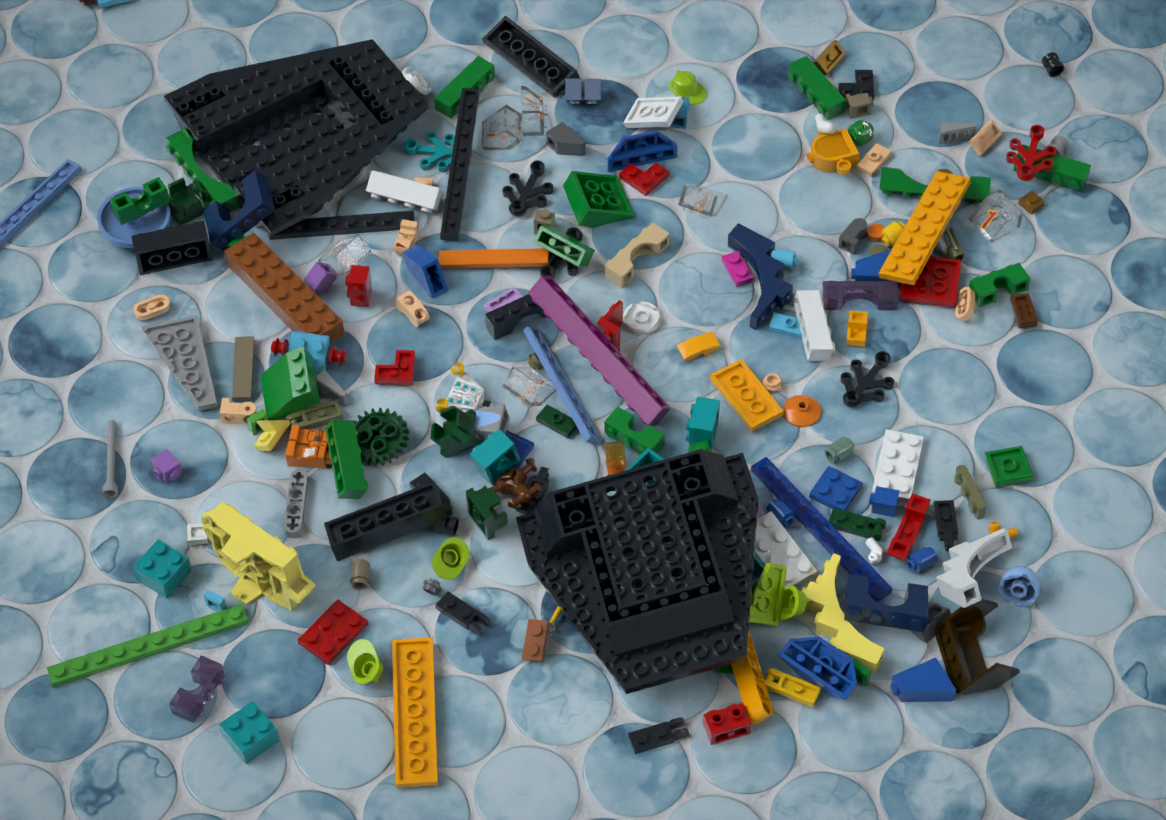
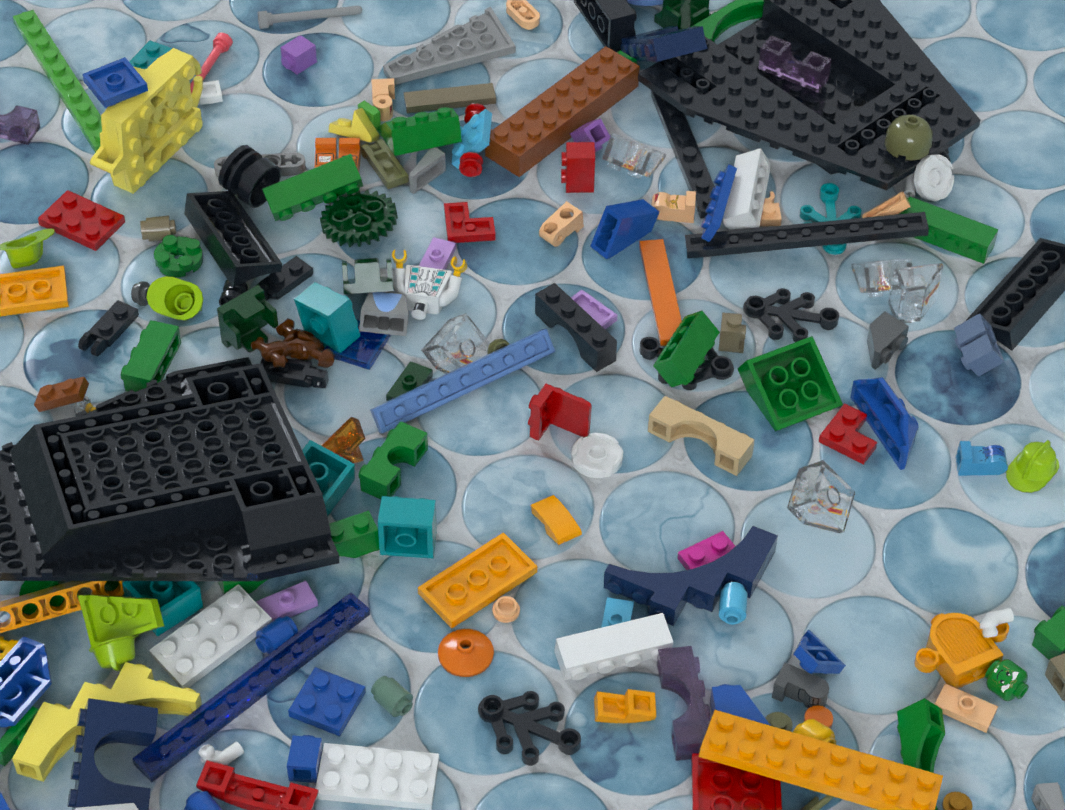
camera: 80 degrees right, 5 degrees down
(134, 522) = (220, 45): none -> coral piece
(252, 552) = (115, 82): none -> blue plate
(290, 129) = (779, 61): none -> clear purple arch
(324, 500) = (247, 174): none -> black wheel
(392, 78) = (909, 137): none -> olive cylinder
(394, 572) = (172, 246): none -> green plate
(419, 206) = (718, 203): none -> blue plate
(427, 392) = (438, 254): none -> lavender plate
(444, 114) = (890, 207): none -> light nougat plate
(505, 581) = (151, 356): none -> green brick
(599, 351) = (507, 398): magenta brick -> none
(653, 112) = (959, 422): white plate -> none
(834, 220) = (816, 656): none -> blue wing
(857, 524) = (268, 730): dark green plate -> none

